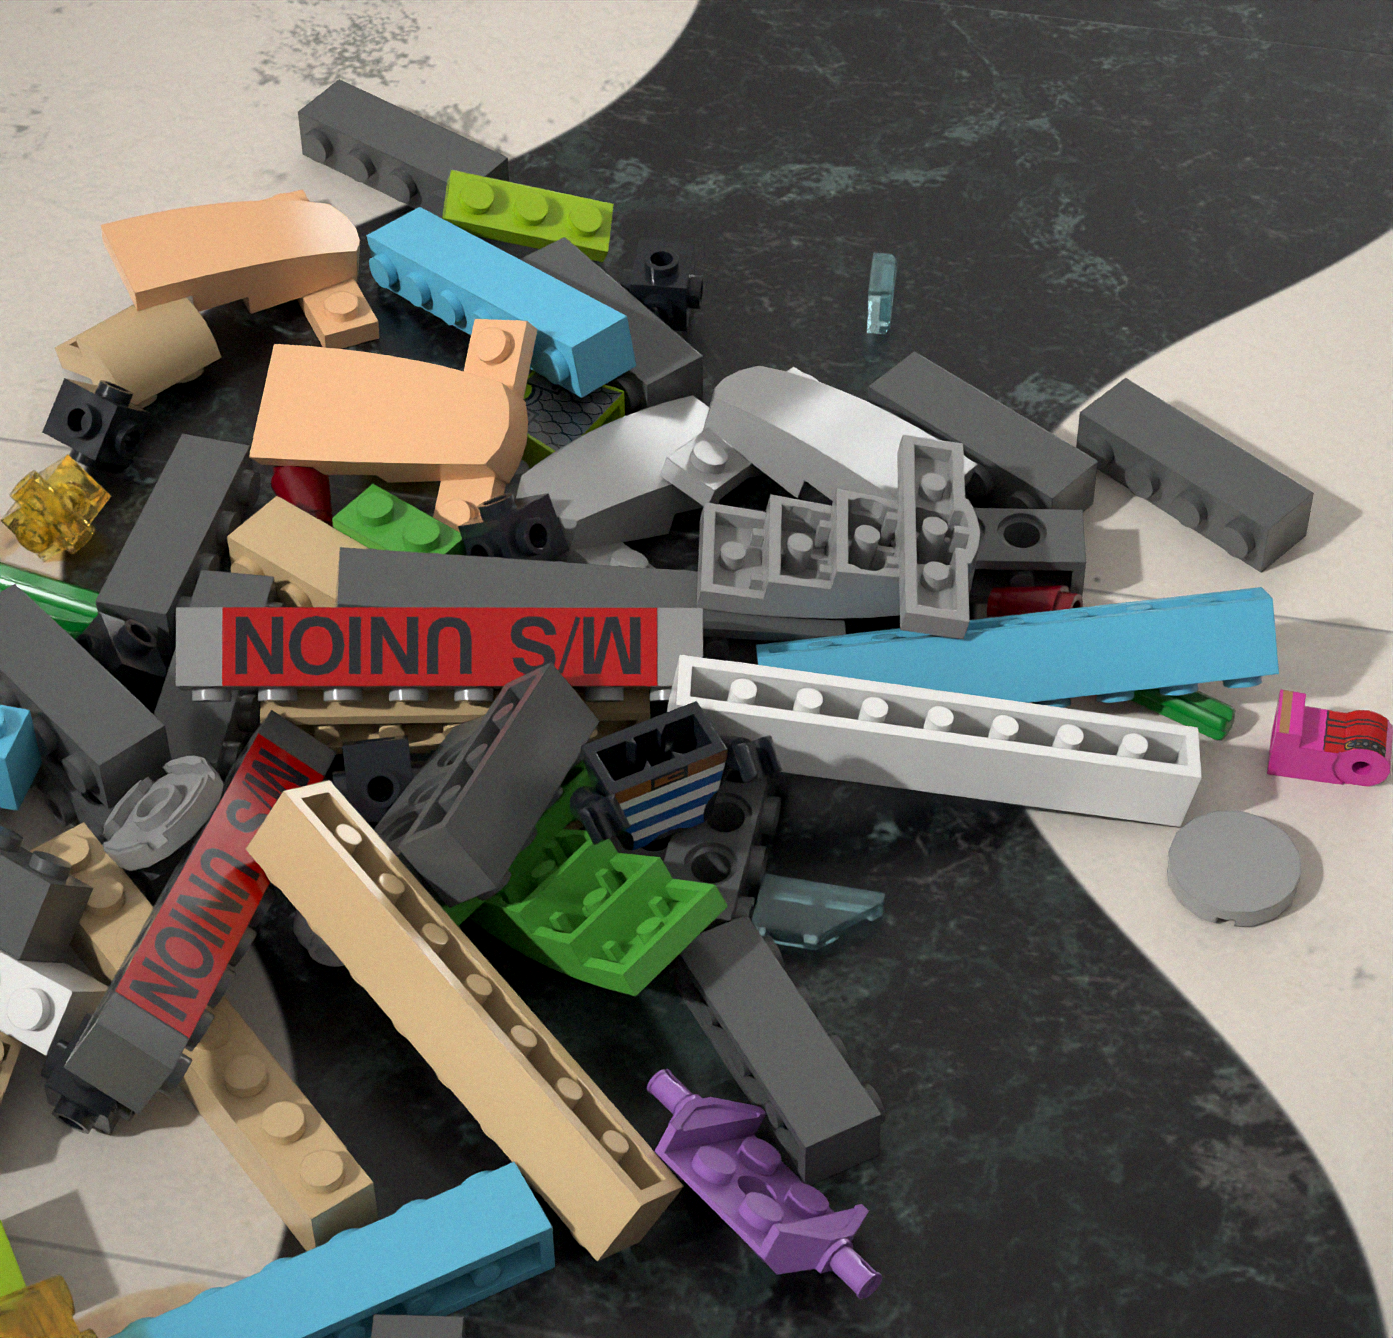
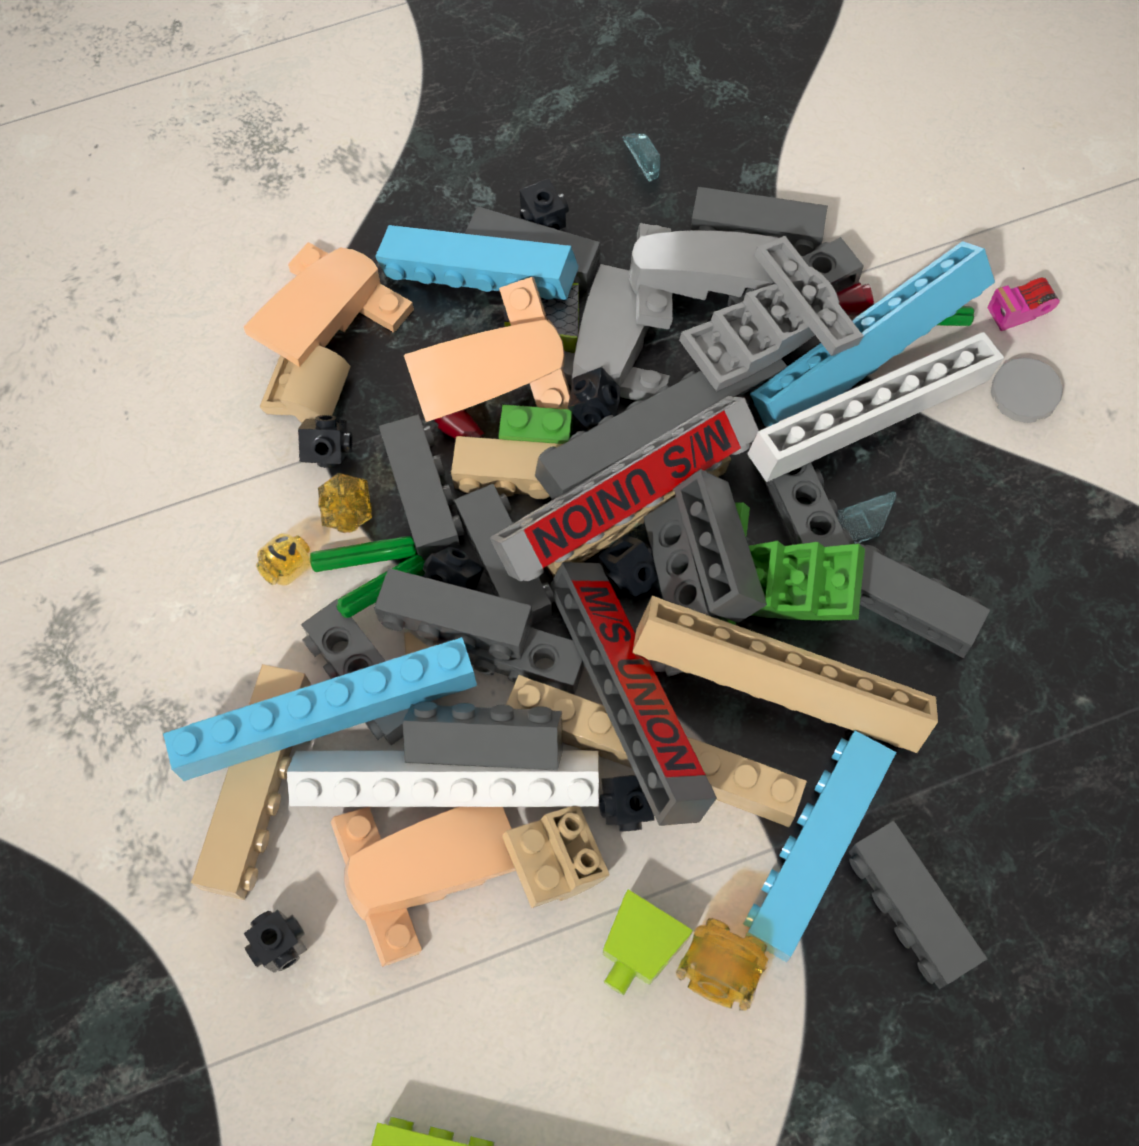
camera: 30 degrees left, 20 degrees up
(162, 815) = (564, 651): light grey tile -> none
(390, 147) = (345, 195): dark grey brick -> none
(526, 214) = (443, 201): lime plate -> none
(662, 777) = (787, 496): black torso -> none
(753, 1191) = (961, 677): medium lavender plate -> none
(1194, 474) = (865, 187): dark grey brick -> none

